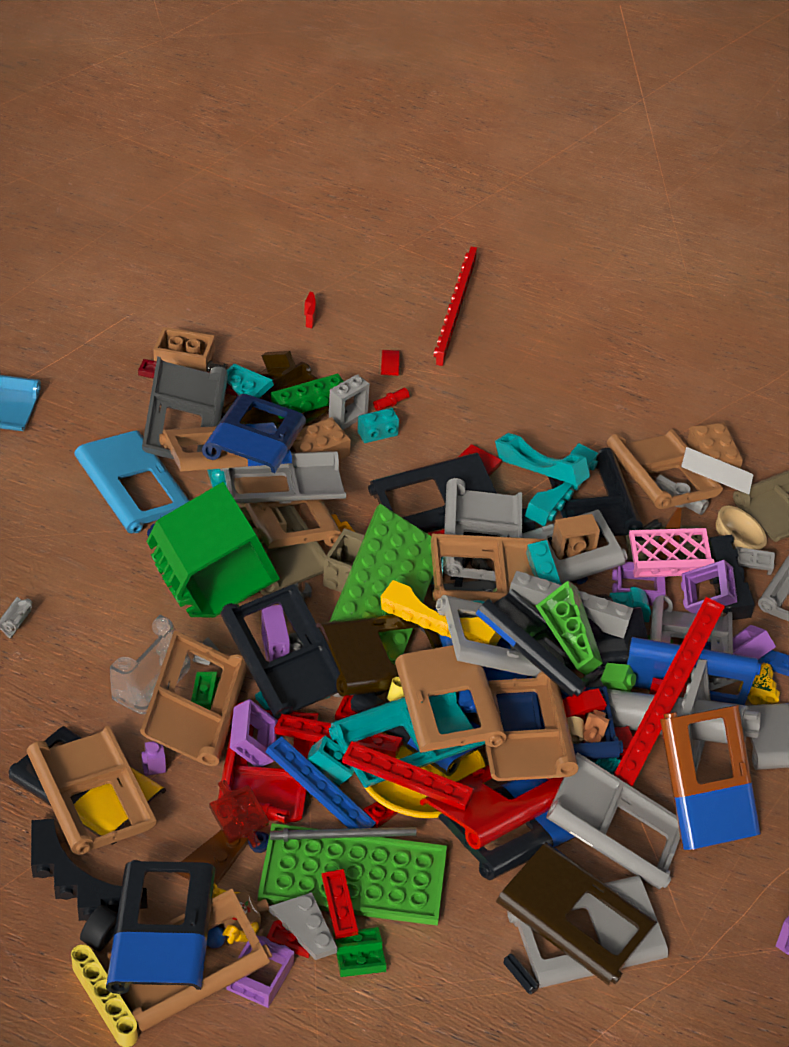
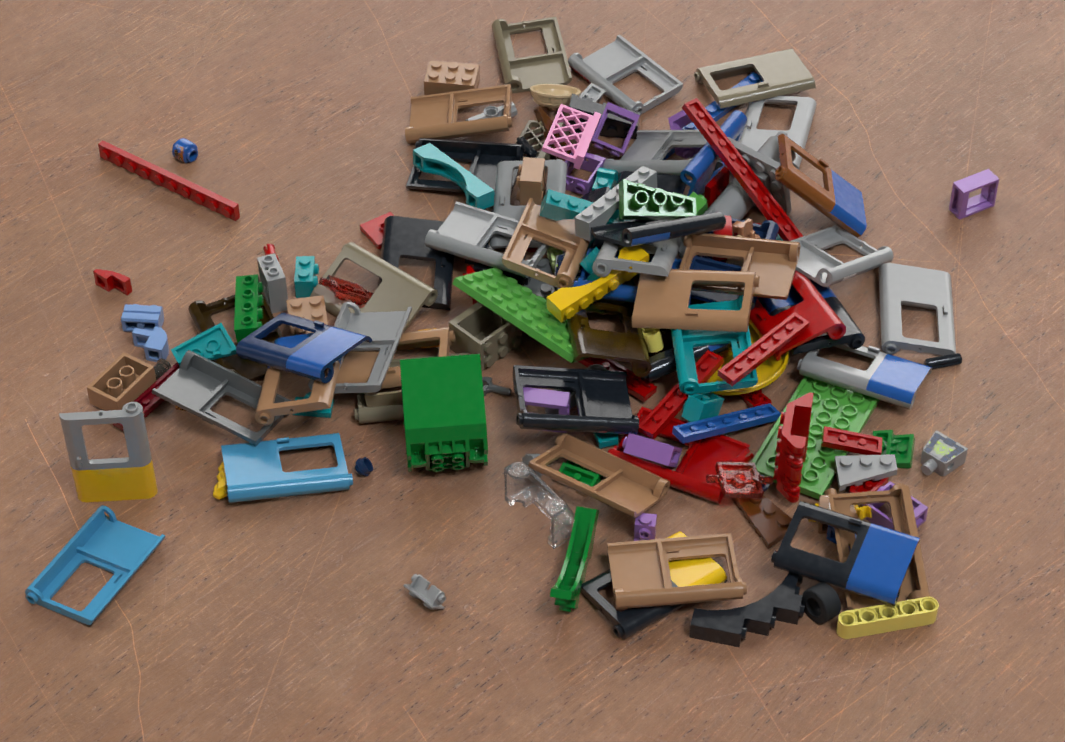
camera: 65 degrees left, 0 degrees up
(69, 359) = (112, 477): none -> piece
(76, 713) = (579, 550): none -> green arch
(248, 357) = (154, 343): none -> medium blue brick
(274, 337) = (141, 317): none -> medium blue brick
(277, 363) = (185, 322): dark brown panel -> none
(279, 830) = (792, 446): none -> red slope
(341, 833) = (767, 458): flat silver bar -> none
(364, 998) = (942, 455): none -> light grey torso
(368, 454) = (346, 290): none -> clear red plate
(377, 486) = (394, 293): none -> dark tan piece
(390, 362) = (221, 247): red slope -> none
(452, 918) = (886, 379): none -> piece
(502, 303) = (185, 150): none -> blue head
(516, 451) = (395, 194): teal arch -> none
(550, 889) = (899, 318): dark brown piece -> none
(717, 470) = (487, 81): white sticker -> none

